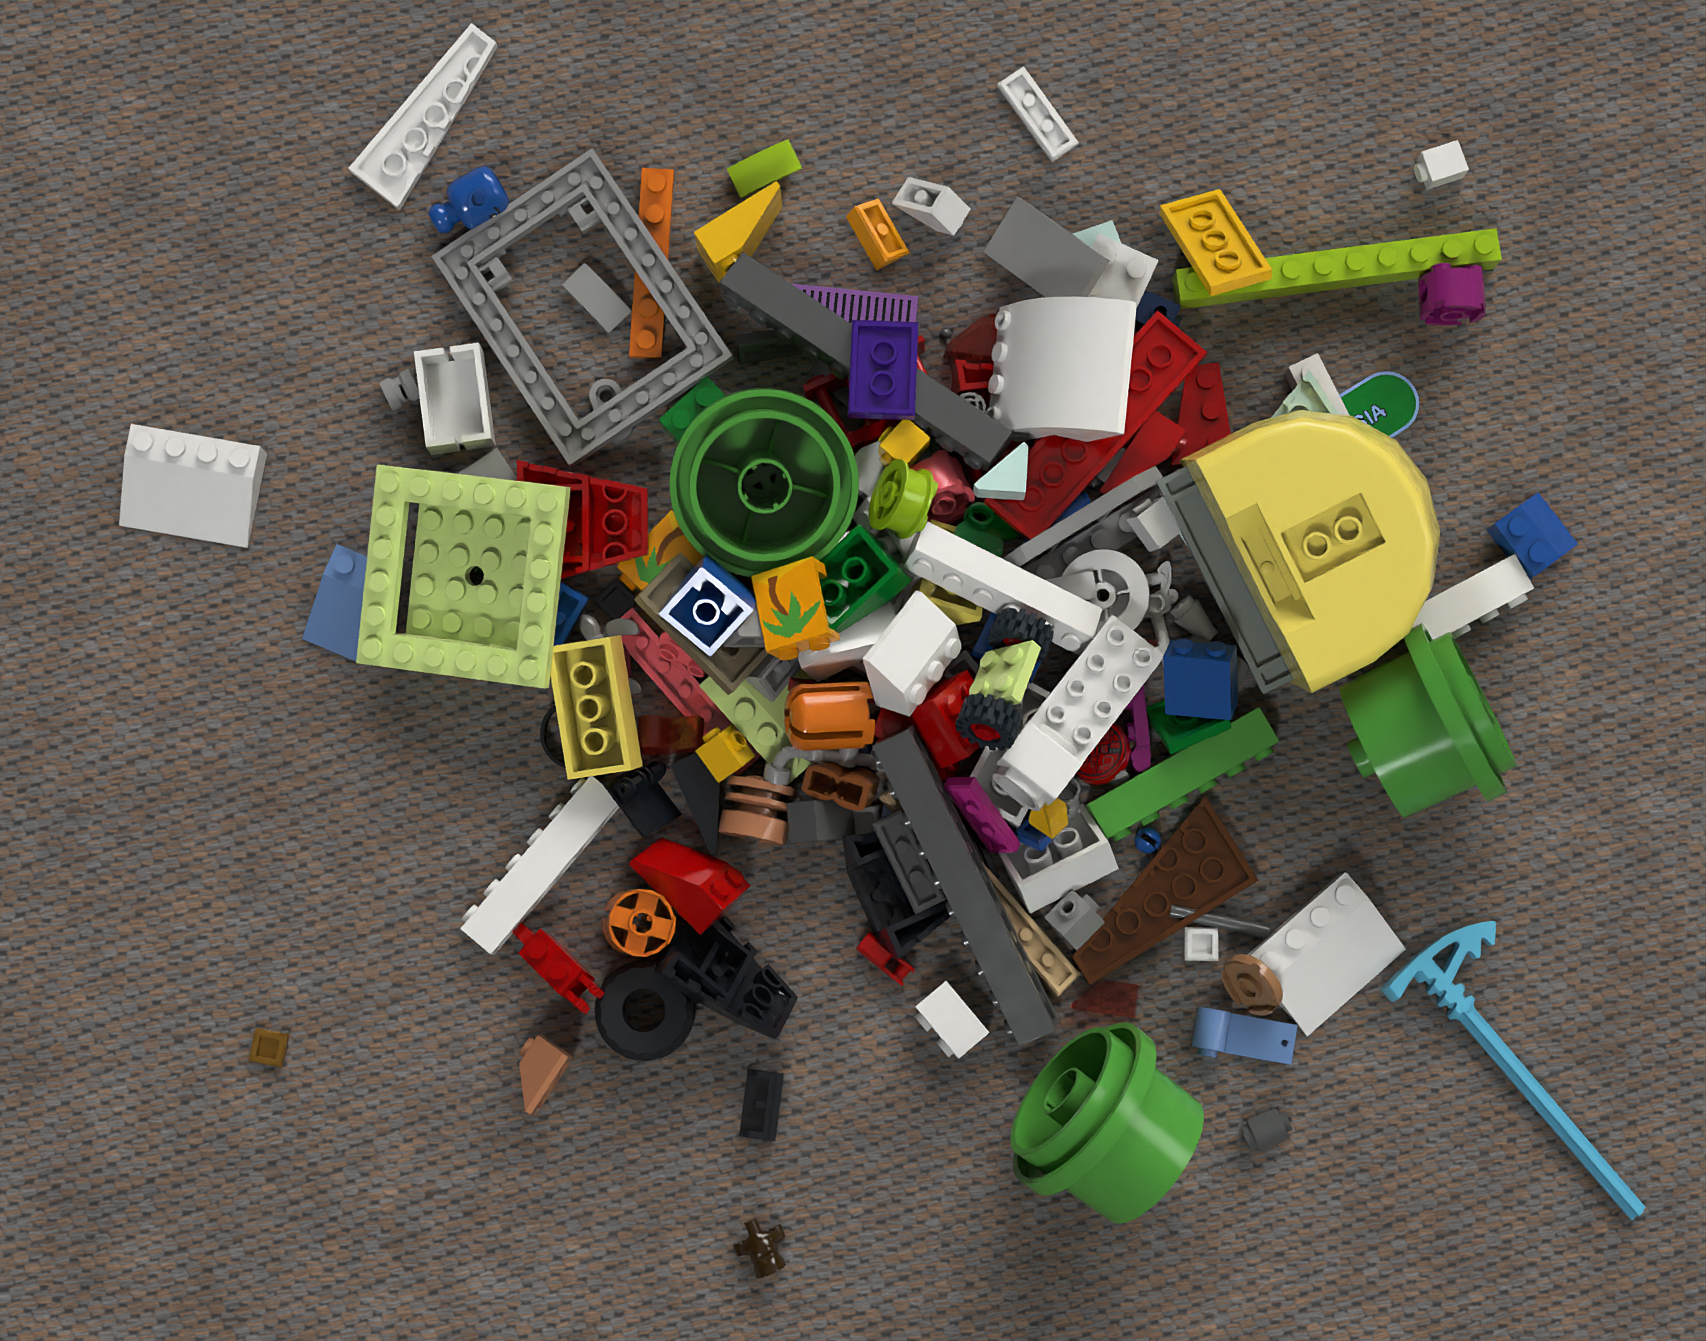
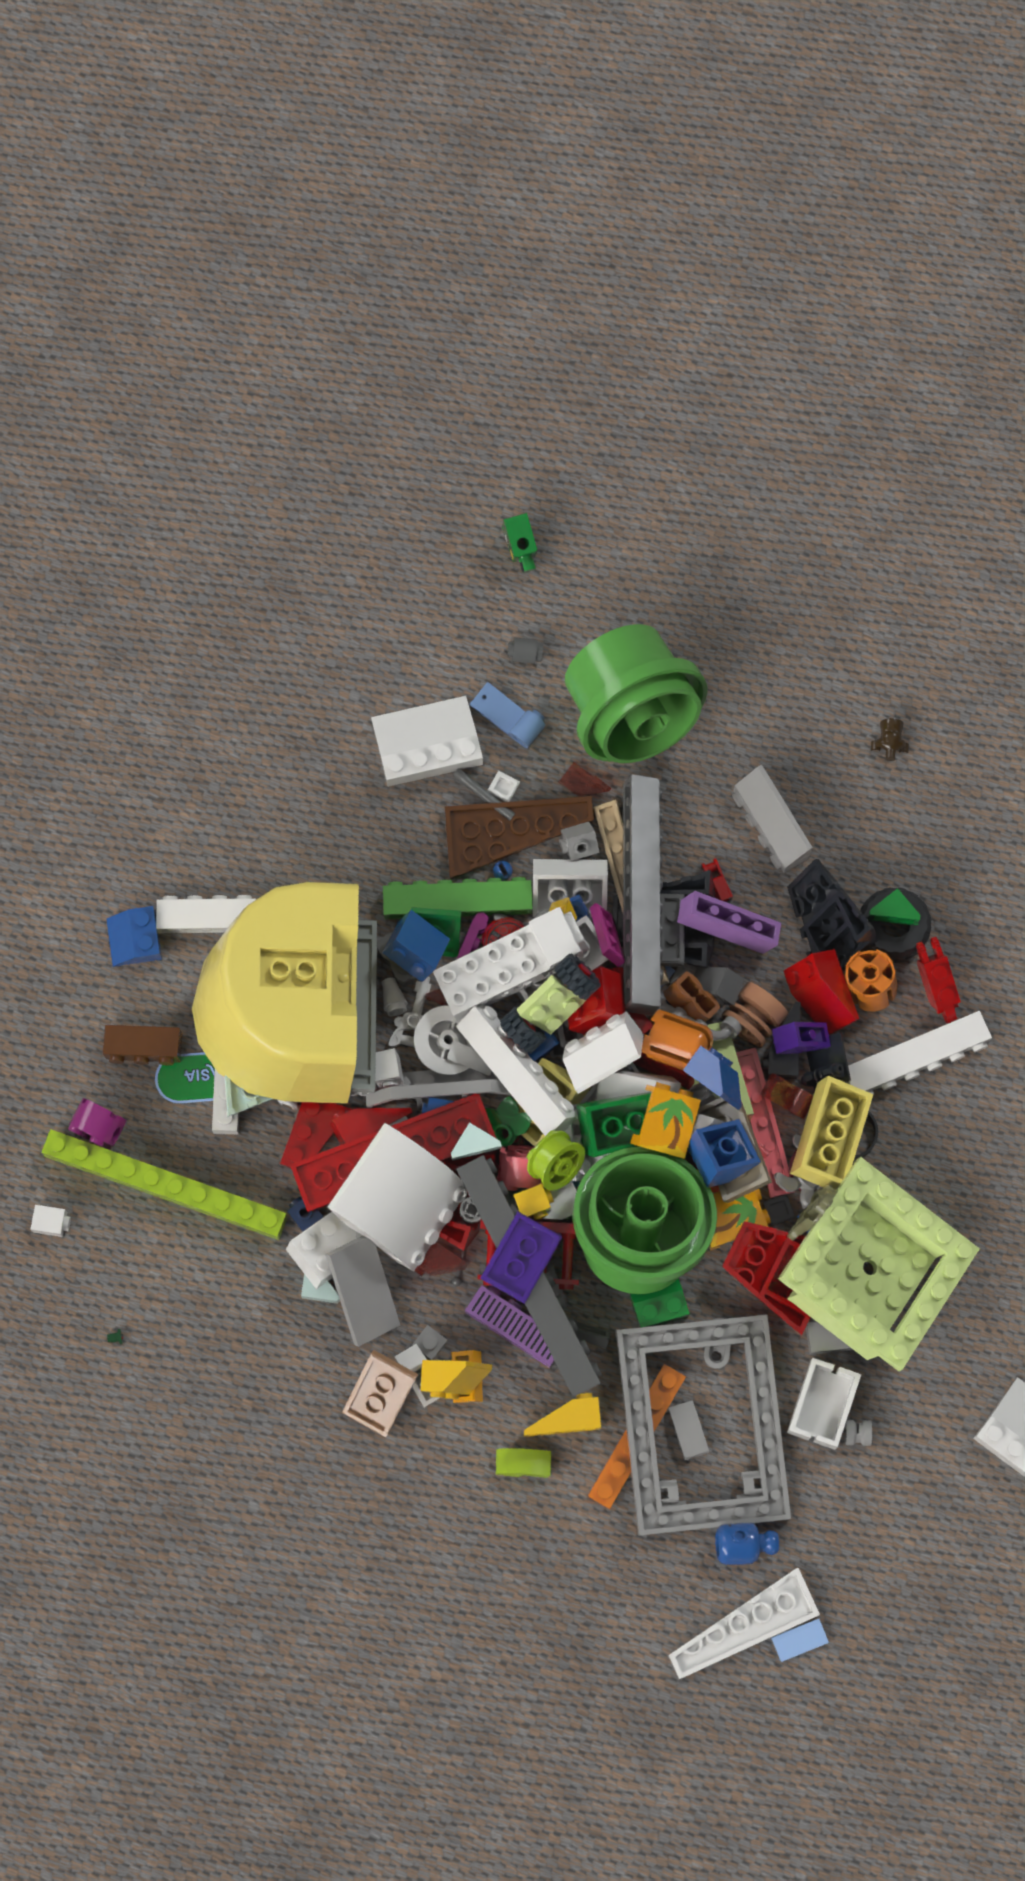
camera: 150 degrees left, 5 degrees down
(338, 604) = (970, 1300): medium blue slope -> none
(357, 133) = (799, 1640): none -> light blue tile
(541, 1070) = (979, 920): nougat slope -> none
(569, 600) = (813, 1212): none -> olive tile
(651, 1020) = (895, 909): none -> green slope
(687, 806) = (800, 1037): none -> dark purple slope
(724, 752) = (758, 1062): yellow brick -> none
(761, 689) = (716, 1074): none -> slope
(761, 1104) = (846, 828): black hinge -> none
(843, 904) = (729, 922): none -> medium lavender brick
(856, 1065) = (772, 819): none -> light grey slope
(895, 211) = (452, 1378): none -> yellow slope
(939, 249) = (430, 1342): none -> light grey plate
(951, 1021) = (694, 819): white brick -> none
(965, 157) = (379, 1393): none -> tile
(1037, 114) = (309, 1405): white tile -> none
(1215, 242) = (240, 1240): yellow plate -> none
(1252, 984) = (485, 741): medium nougat tile -> none
(1293, 80) = (115, 1337): none -> dark green piece
(1358, 1278) = (513, 530): none -> green torso
(1426, 726) = (284, 834): bright green piece -> none
(1451, 414) = (142, 1044): none -> reddish brown brick
(1462, 1008) = (361, 684): medium azure piece -> none

